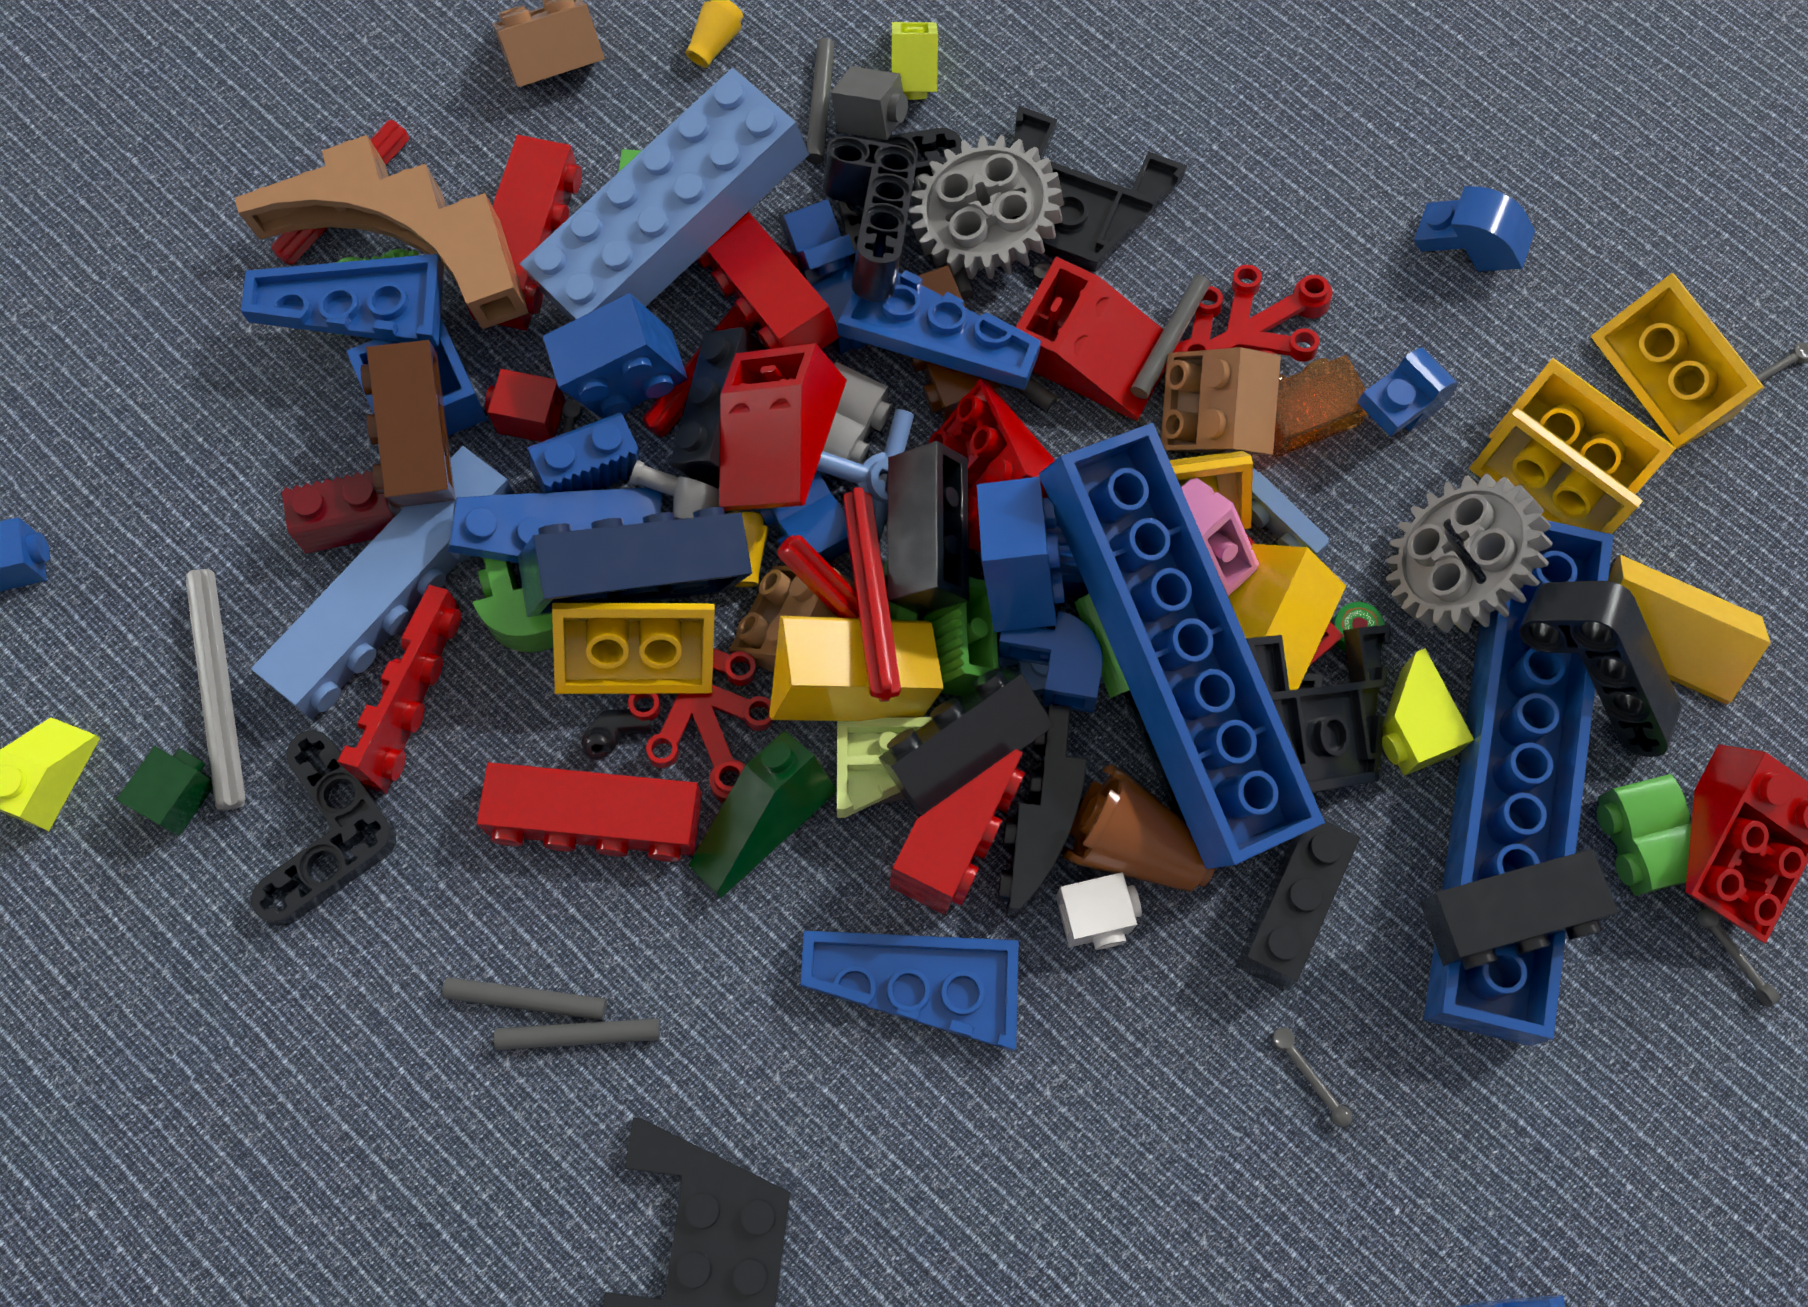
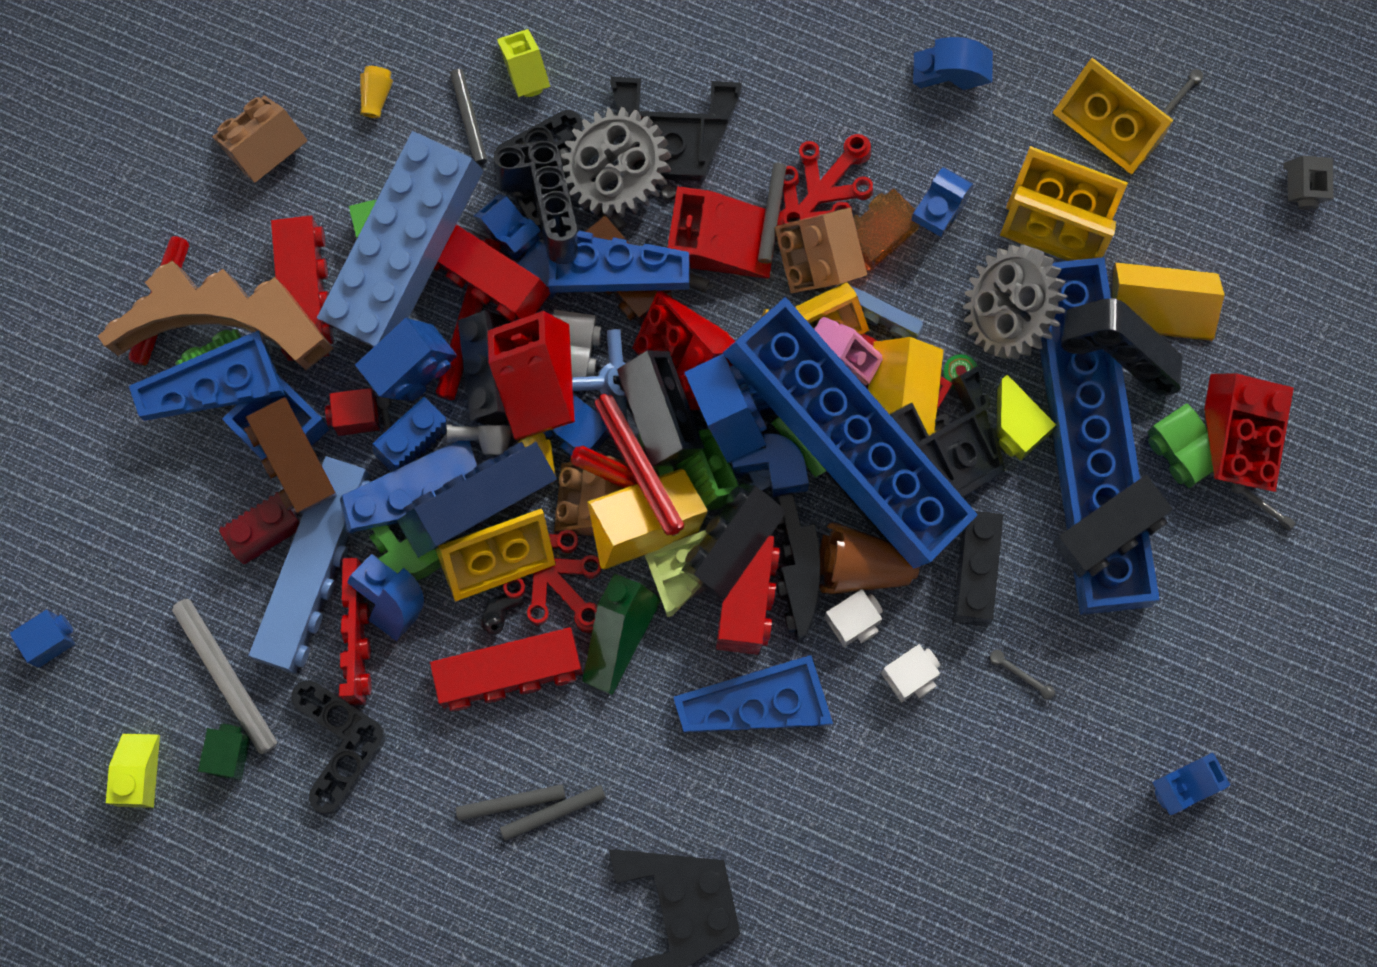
camera: 15 degrees left, 5 degrees up
(477, 656) = (395, 595): none -> blue brick
(869, 102) = (506, 111): dark grey brick -> none
(1154, 1018) = (912, 673): none -> white brick

